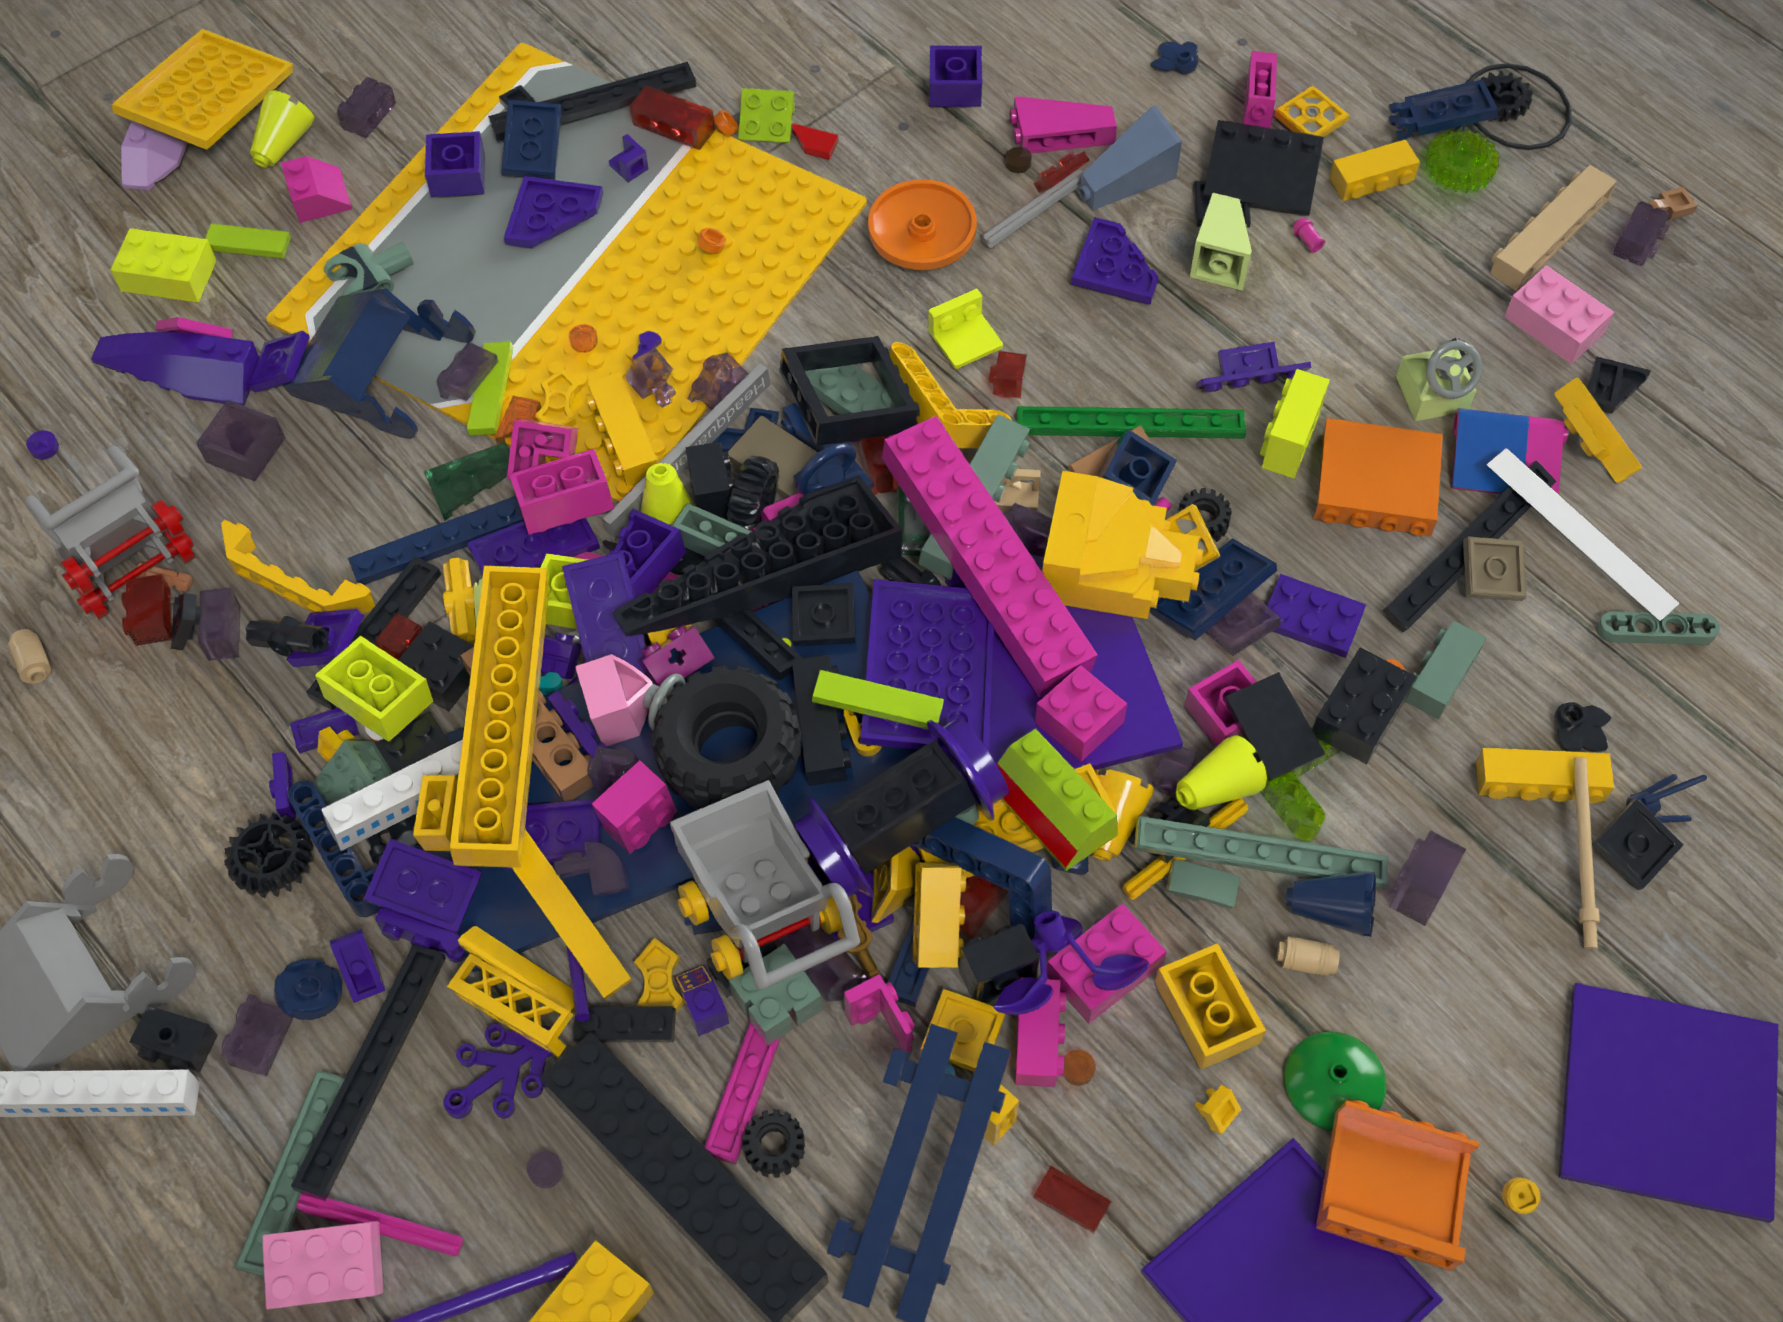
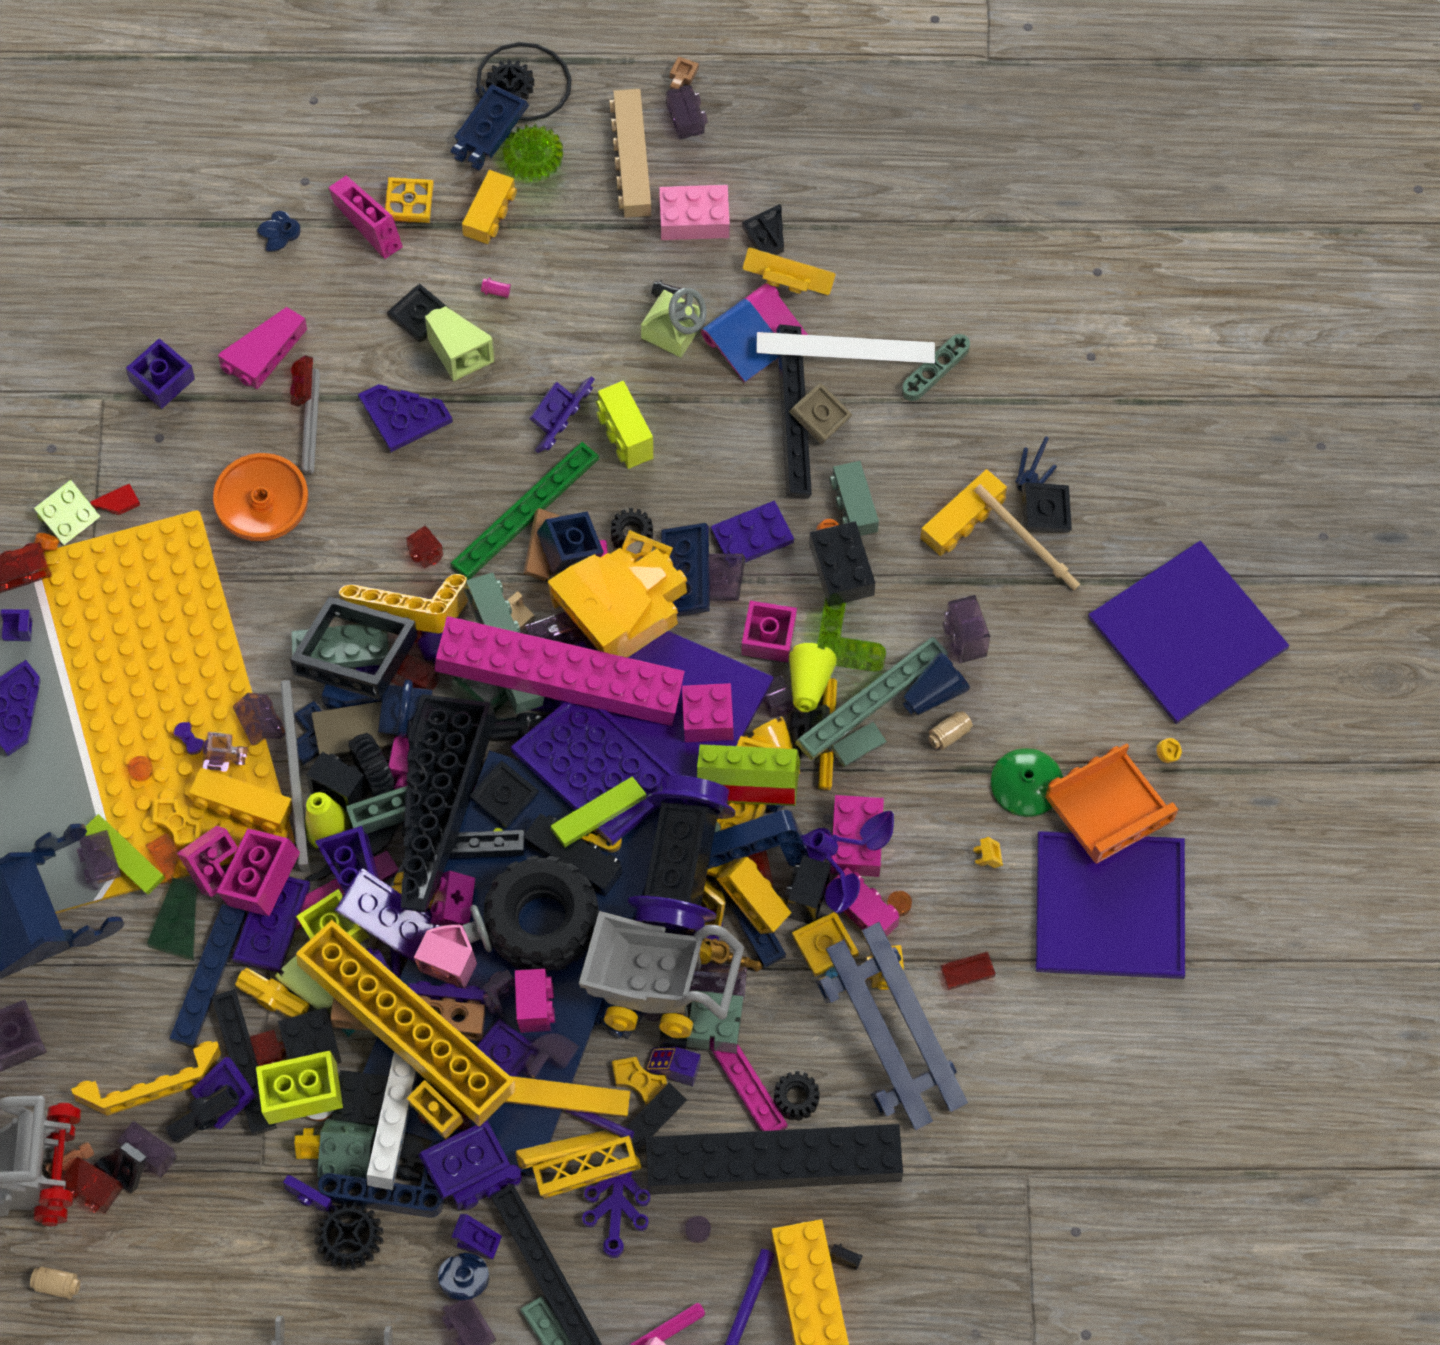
camera: 50 degrees left, 5 degrees up
(307, 729) = (282, 1144): dark purple tile -> none
(711, 240) = (142, 630): orange tile -> none
(875, 996) = (777, 968): dark pink bracket -> none
(963, 330) = (366, 545): neon yellow bracket -> none
(1018, 159) = (262, 396): dark brown tile -> none
(1134, 162) = (343, 332): sand blue slope -> none
(1209, 1006) = (932, 805): yellow brick -> none
(1264, 167) = (421, 266): black slope -> none
(1274, 726) = (808, 620): black tile -> none
(1379, 477) = (702, 413): orange panel -> none
(1584, 730) = (957, 466): black plate -> none

